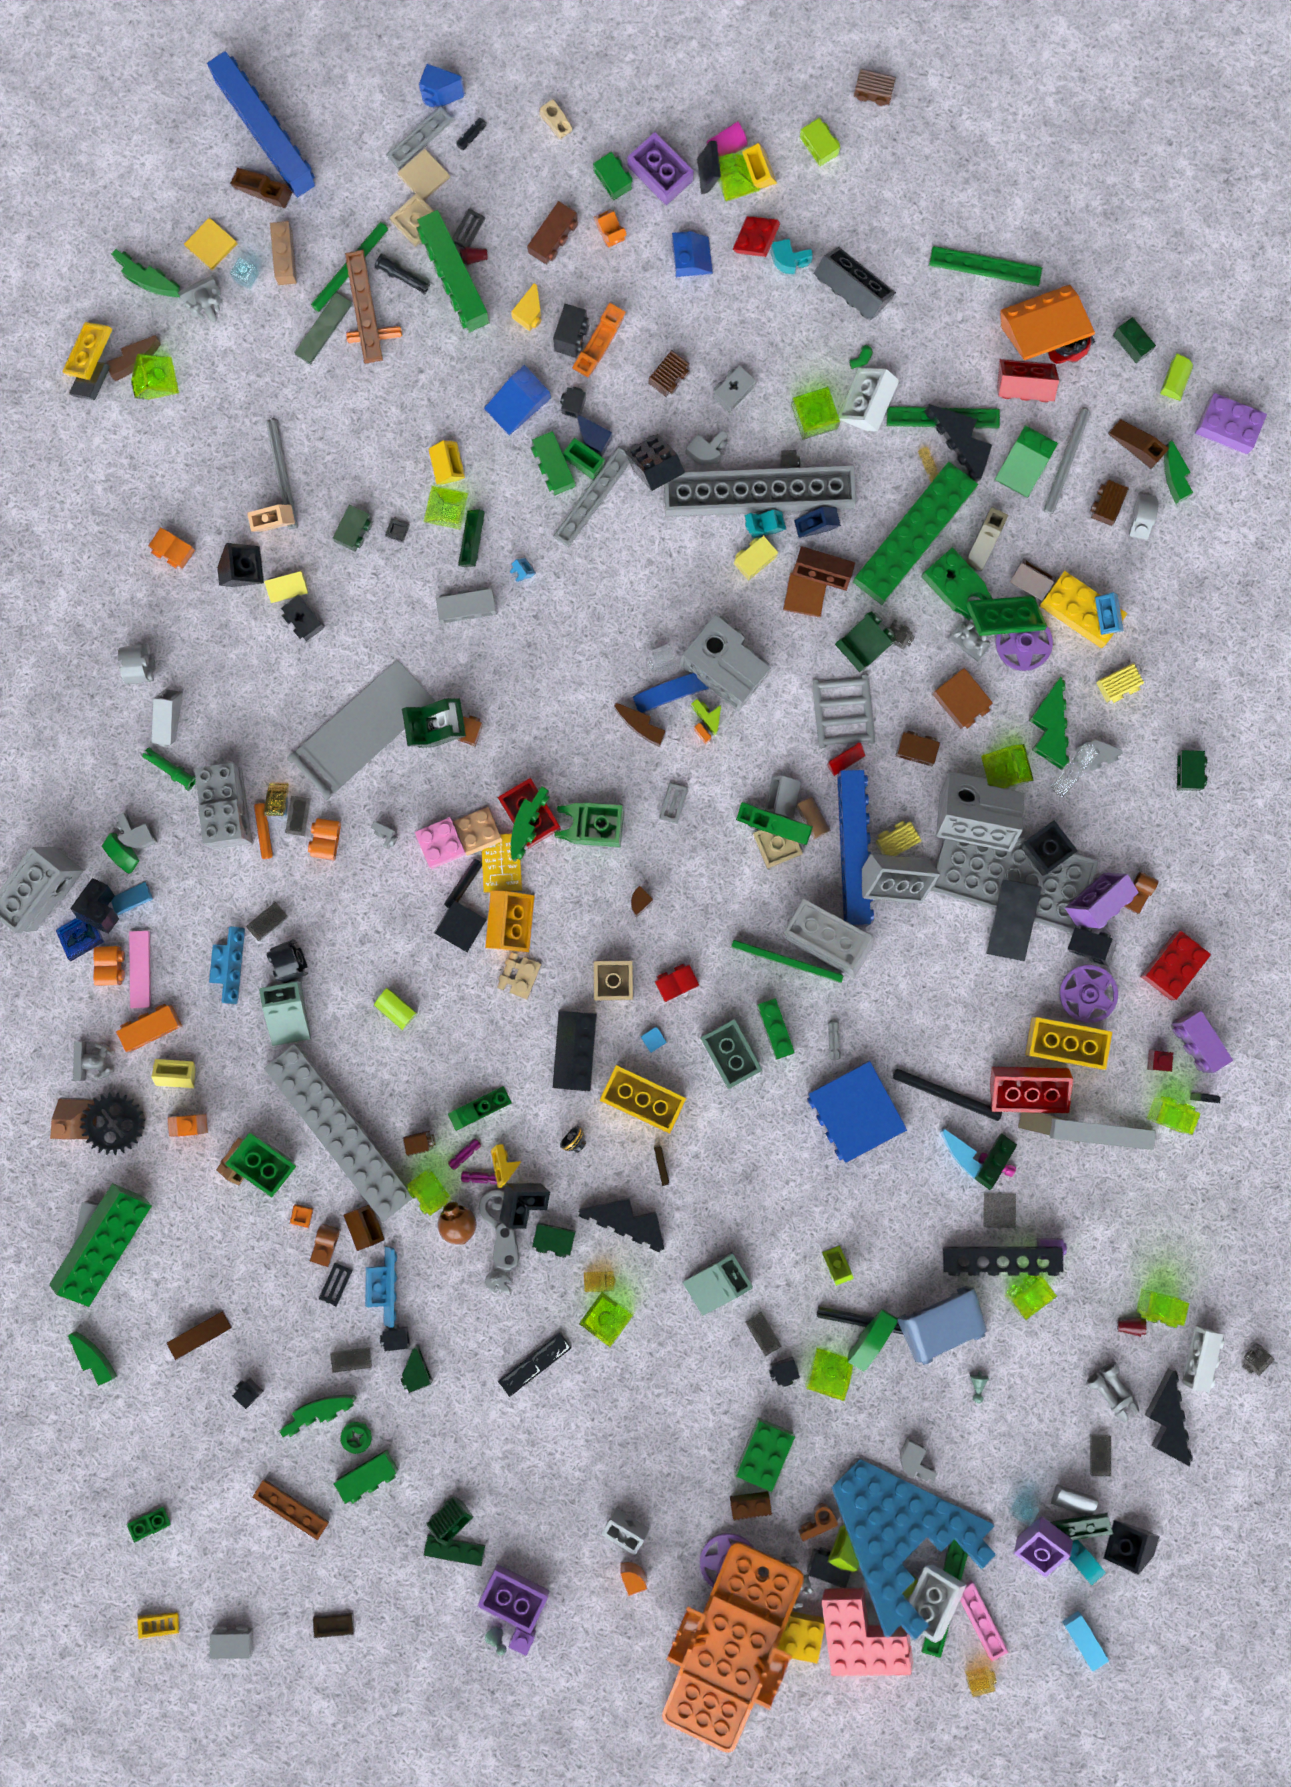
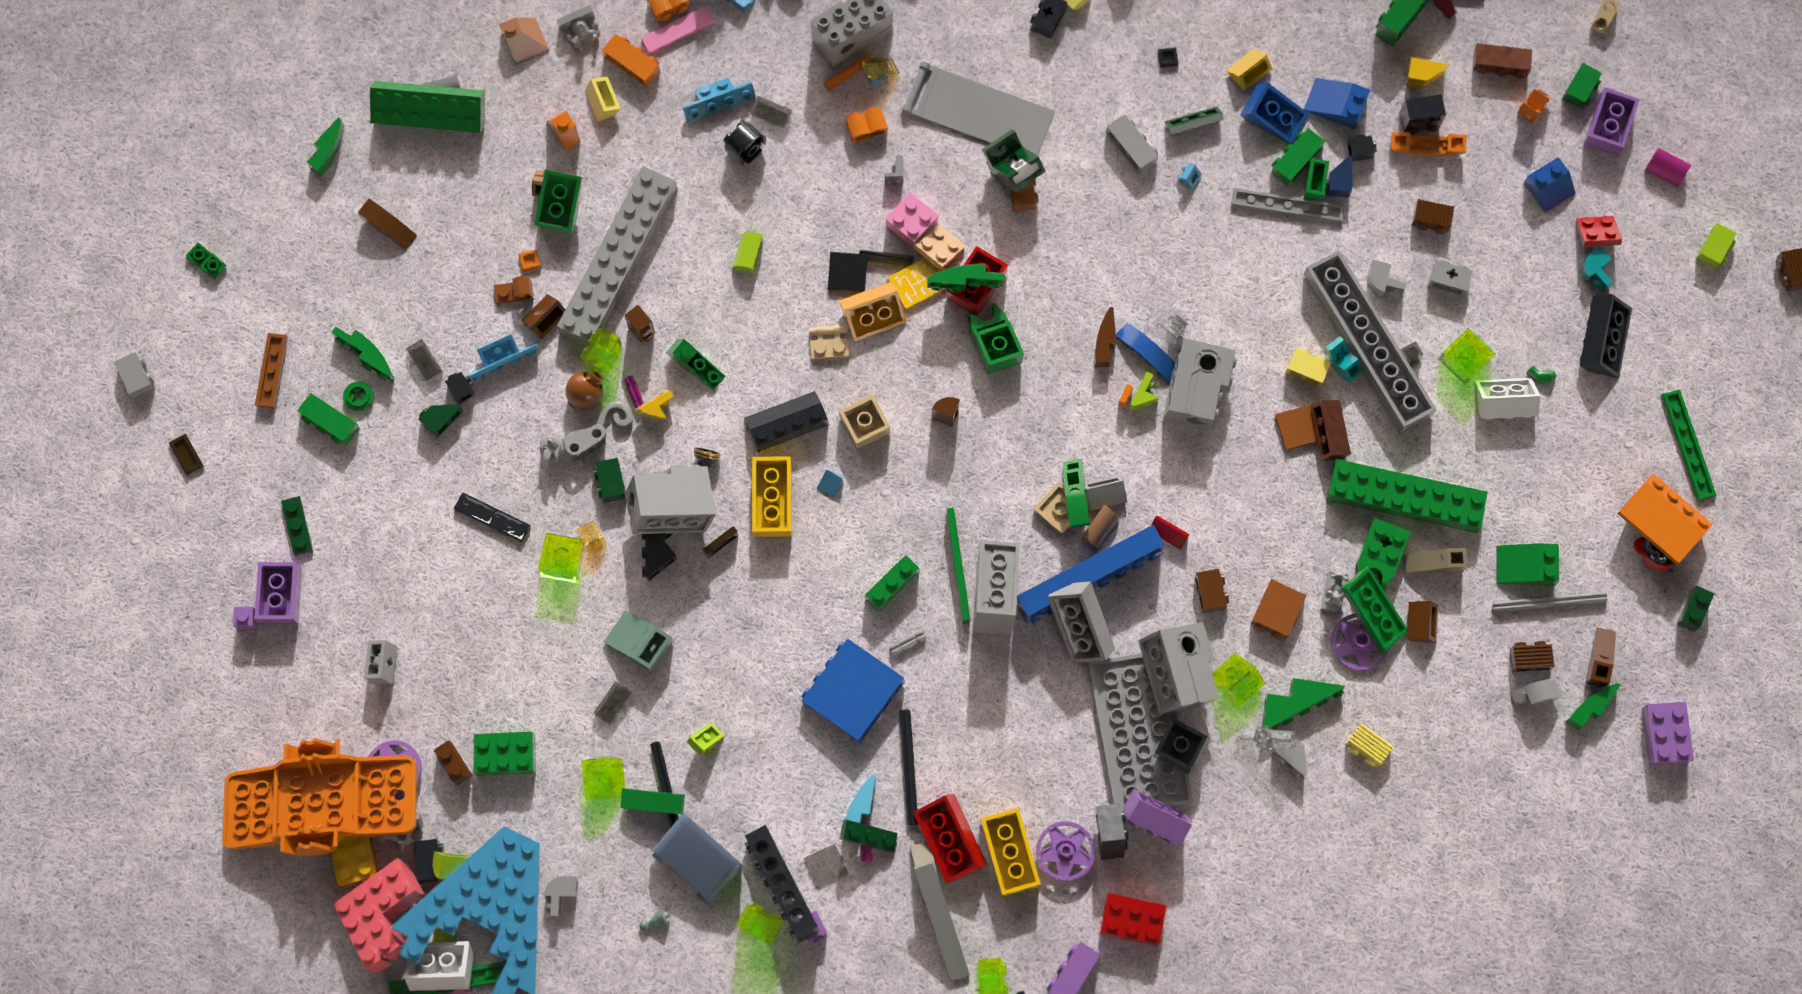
camera: 65 degrees right, 10 degrees down
(97, 1134) = (520, 61): black gear -> none
(147, 1634) = (115, 295): yellow slope -> none
(247, 1392) = (355, 286): black brick -> none
(285, 1013) = (699, 162): sand green slope -> none
(298, 816) = (875, 94): clear smoke plate -> none
(328, 1300) = (467, 317): black tile -> none
(352, 528) = (1149, 19): dark green brick -> none
(445, 507) = (1210, 88): clear neon green slope -> none
(449, 1520) = (322, 507): dark green brick -> none
(464, 1154) = (649, 370): magenta axle -> none
(494, 1637) = (235, 595): sand green piece -> none
(500, 462) = (1274, 112): none -> blue slope
(519, 1200) = (630, 431): black brick -> none
(607, 1195) = (671, 501): none -> light grey piece
(633, 1577) = (342, 686): orange brick -> none
(654, 462) = (1344, 236): black brick -> none
(669, 819) = (1052, 408): light grey tile -> none
(676, 983) = (890, 479): red brick -> none
(708, 167) = (1636, 160): black tile -> none
(731, 1054) = (850, 554): sand green brick -> none
(735, 177) = (1644, 189): clear neon green slope -> none
(759, 166) = (1663, 205): yellow brick -> none
(784, 1372) = (586, 737): black brick -> none
(817, 522) = (1370, 406): dark blue slope -> none
(821, 1525) = (464, 834): dark orange plate -> none
(866, 641) = (1283, 498): dark green panel -> none
(867, 718) = (1215, 535): light grey bar -> none
(898, 840) = (1119, 613): light yellow brick -> none
(902, 634) = (1306, 526): clear smoke brick -> none
(916, 417) = (1528, 473): green tile -> none
(928, 463) = (1479, 479): clear yellow axle -> none
(958, 433) = (1520, 490): black slope -> none
(1013, 920) = (1098, 749): black tile -> none
(1027, 380) = (1603, 530): slope -> none
(1076, 607) = (1419, 679): yellow brick -> none
(1109, 613) = (1426, 699): dark azure slope -> none
(1146, 886) = (1184, 856): dark orange plate -> none
(1160, 1061) = (1036, 946): dark red brick -> none
(1177, 377) = (1683, 665): lime brick -> none
(1191, 770) = (1322, 849): dark green brick -> none

